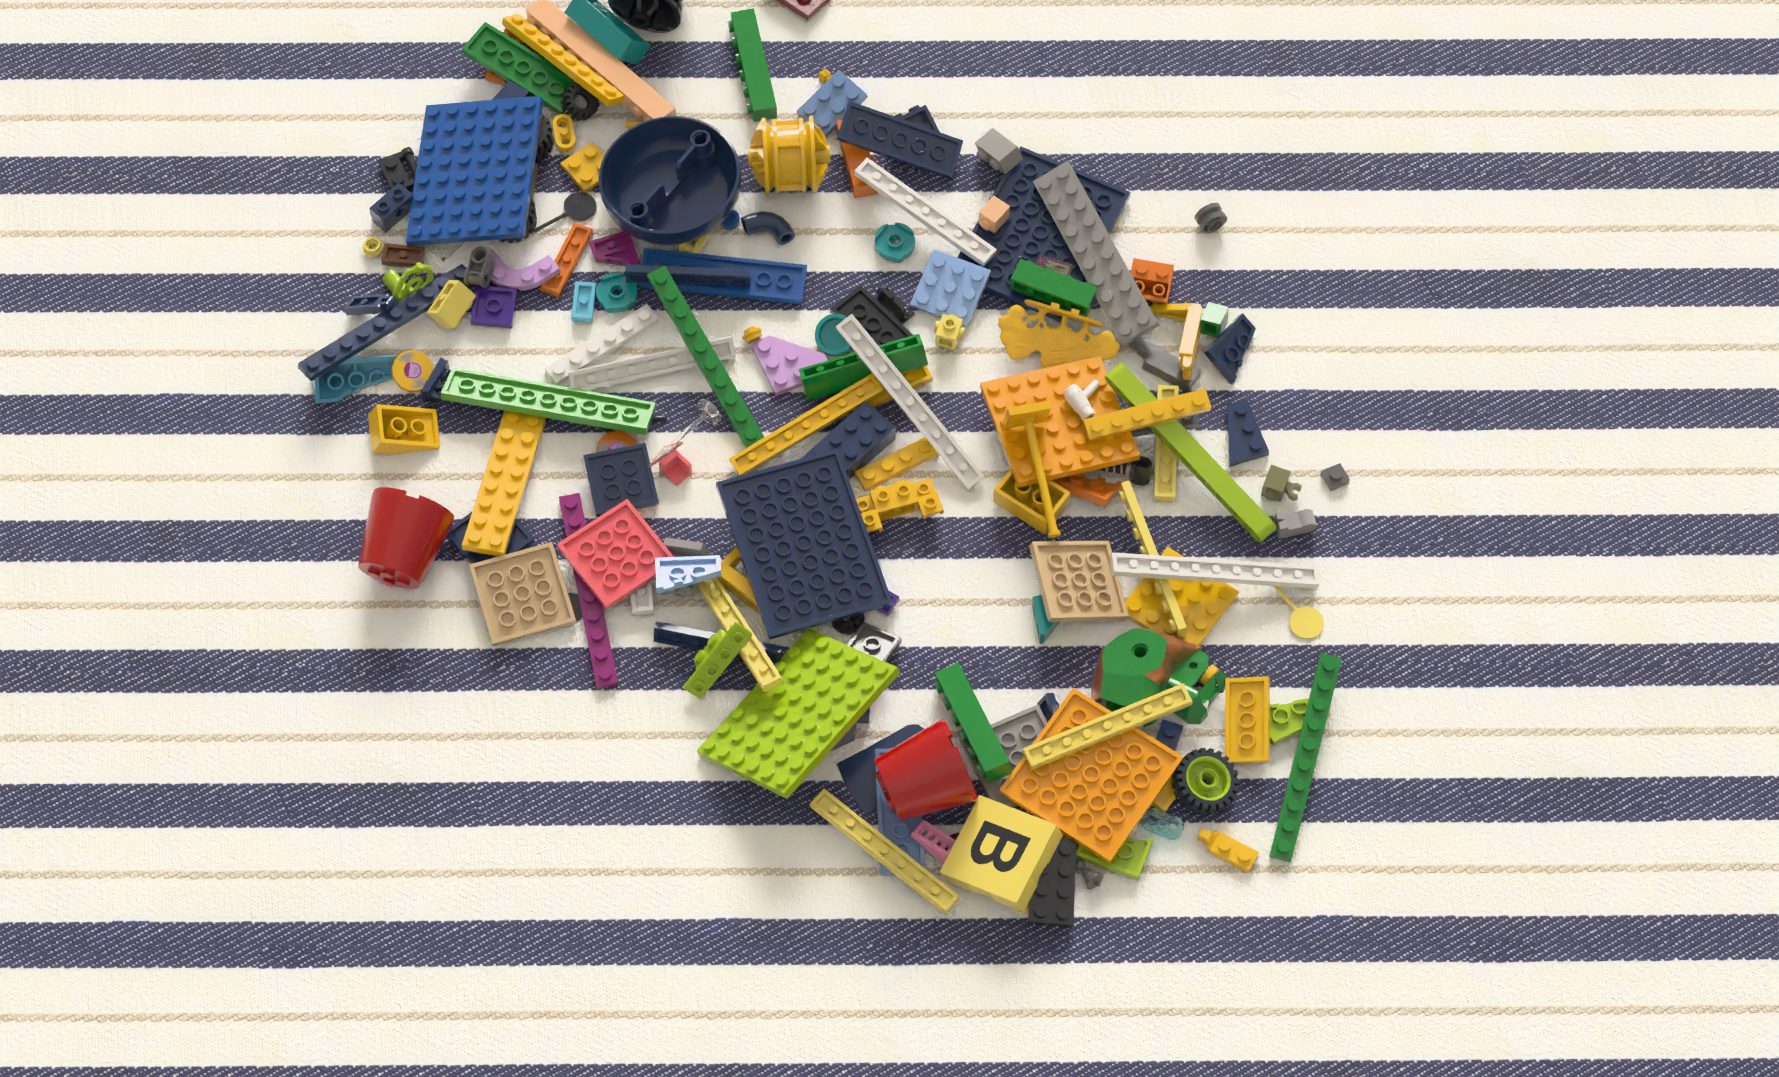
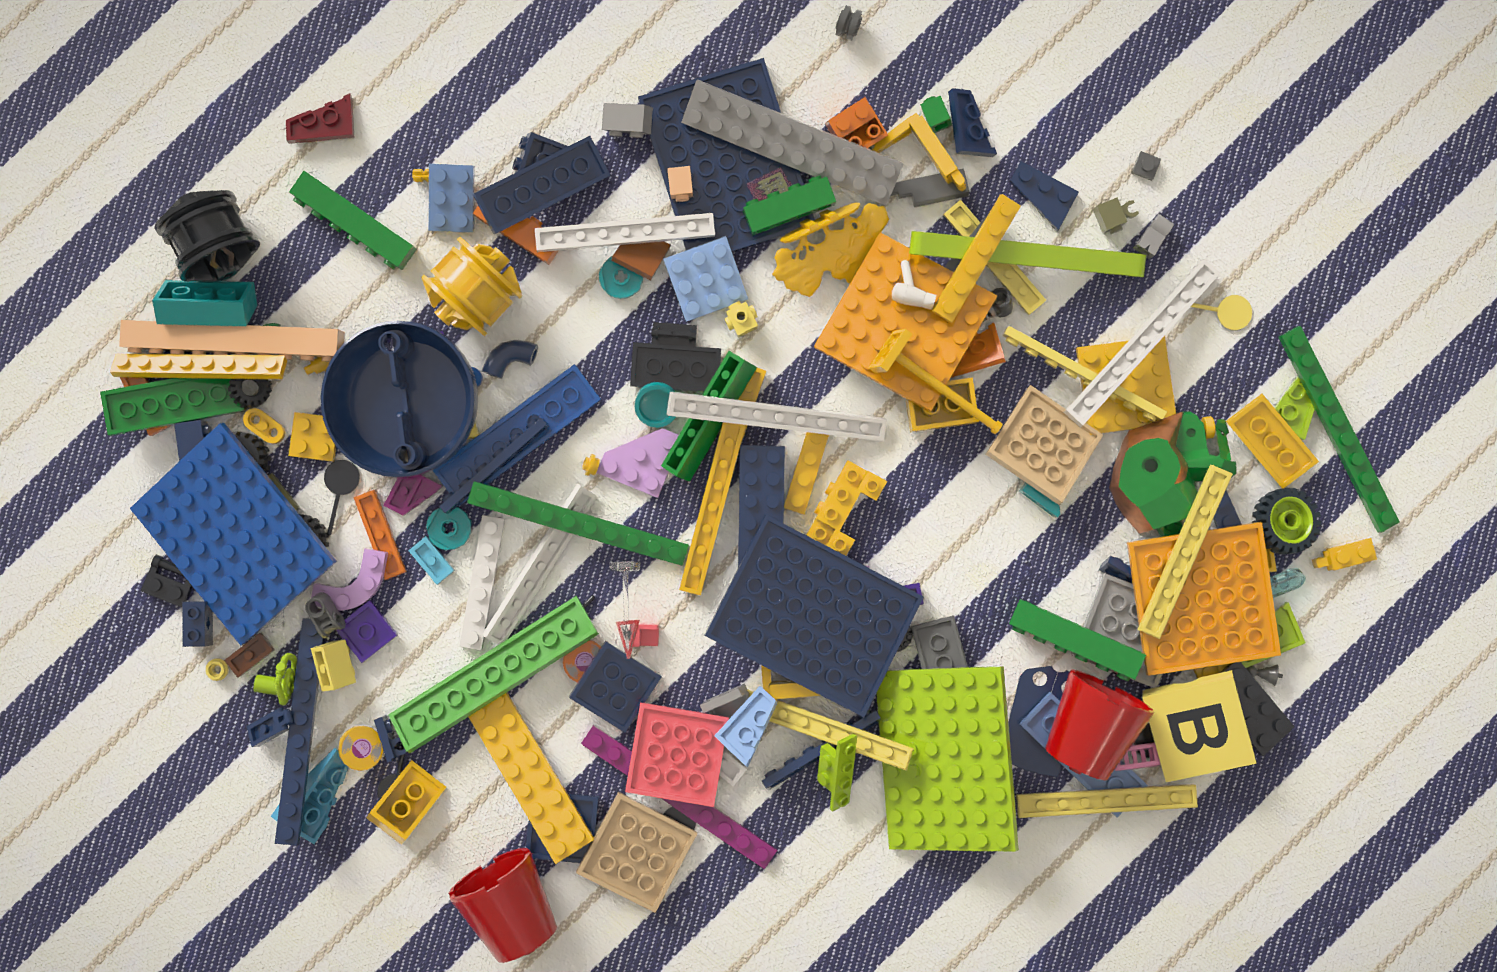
camera: 45 degrees left, 25 degrees up
(920, 238) = (642, 257): none -> dark orange tile

